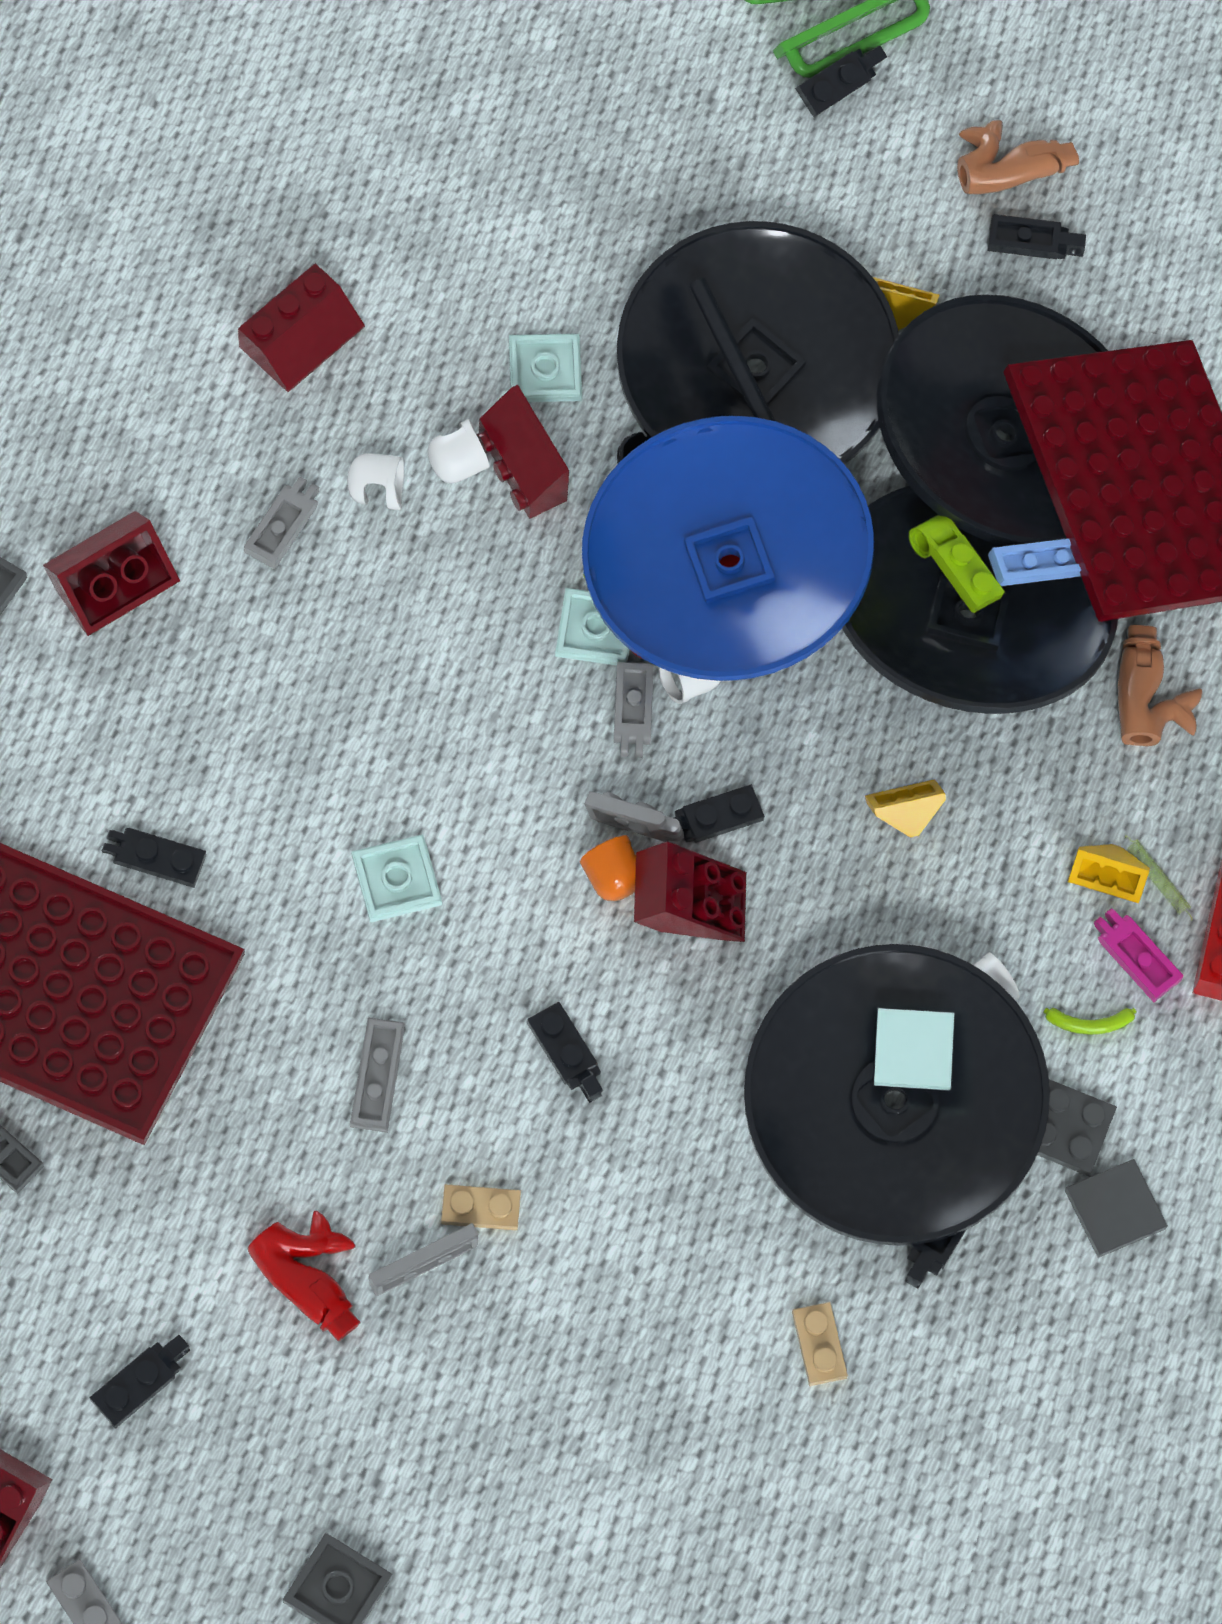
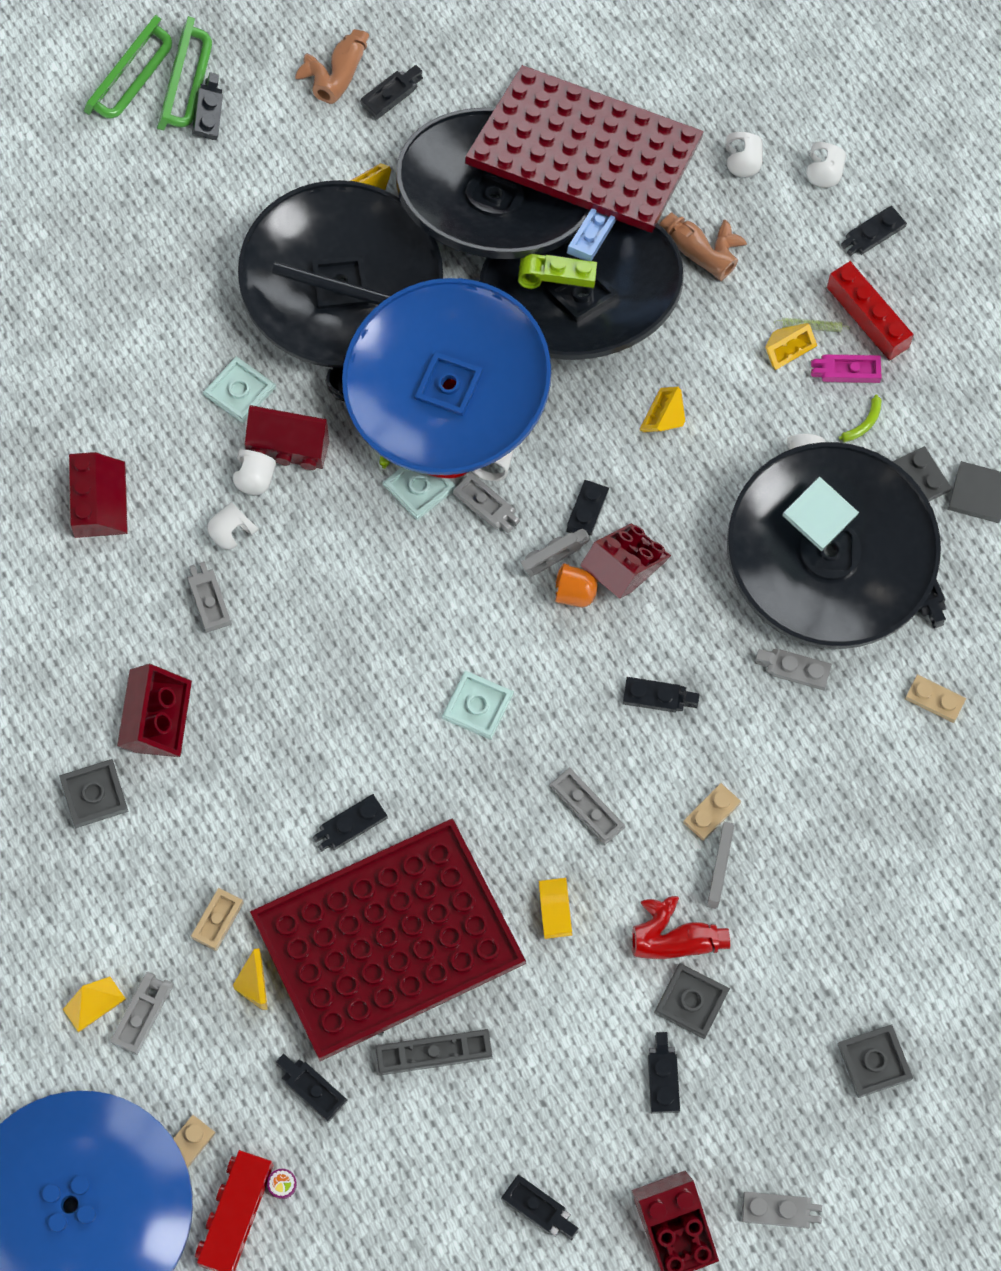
camera: 45 degrees left, 0 degrees up
(231, 1128) = (555, 908): none -> yellow slope
(249, 1347) = (692, 1000): none -> dark grey tile
(725, 1168) = (795, 667): none -> light grey hinge

